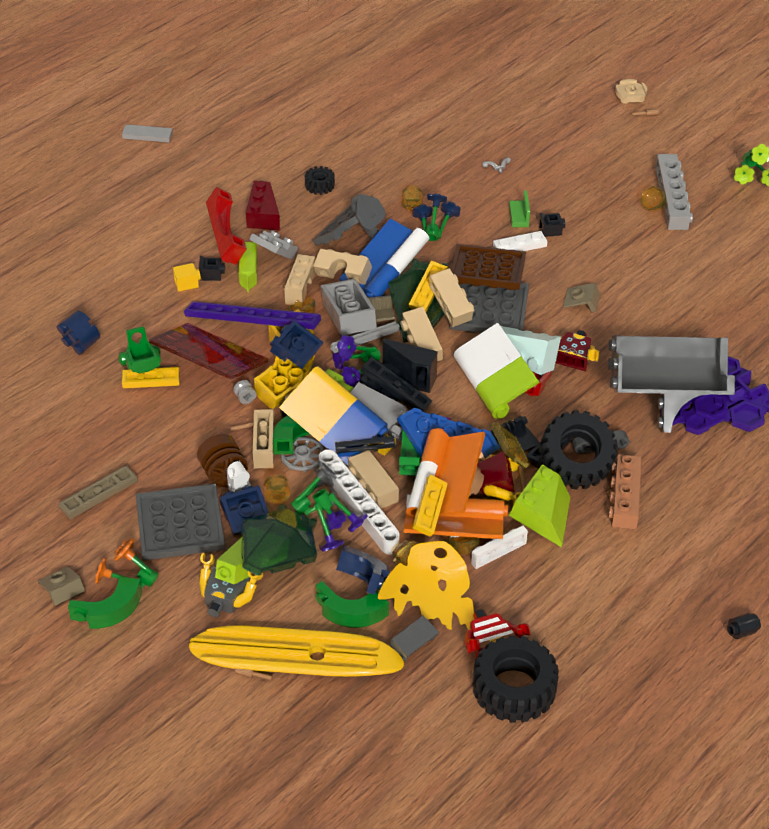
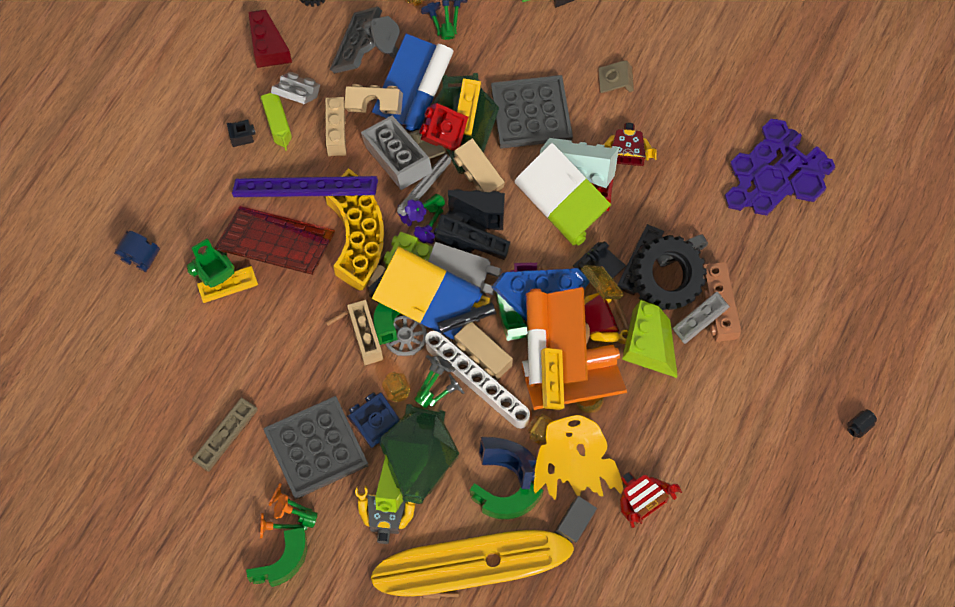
camera: 15 degrees left, 20 degrees up
(62, 585) = (228, 548): dark tan piece -> none
(186, 277) = (219, 150): yellow brick -> none
(217, 455) = (335, 370): reddish brown wheel -> none
(229, 246) = (222, 51): red arch -> none
(237, 477) = (357, 388): white leg -> none
(244, 391) = (326, 278): light grey wheel -> none
(295, 344) = (363, 218): dark blue plate -> none
(306, 307) = (351, 160): clear yellow hair -> none
(334, 520) = (459, 406): plant -> none
(399, 293) = (443, 127): none -> red plate
(451, 297) = (495, 118): tan brick -> none
(488, 266) = (517, 65): reddish brown plate -> none
(498, 547) = (612, 407): white plate -> none
(509, 701) = (690, 516): black tyre -> none
(522, 242) = (537, 22): white plate -> none
(601, 496) = (701, 317): none -> light grey tile
(670, 366) = (729, 157): dark grey cylinder -> none

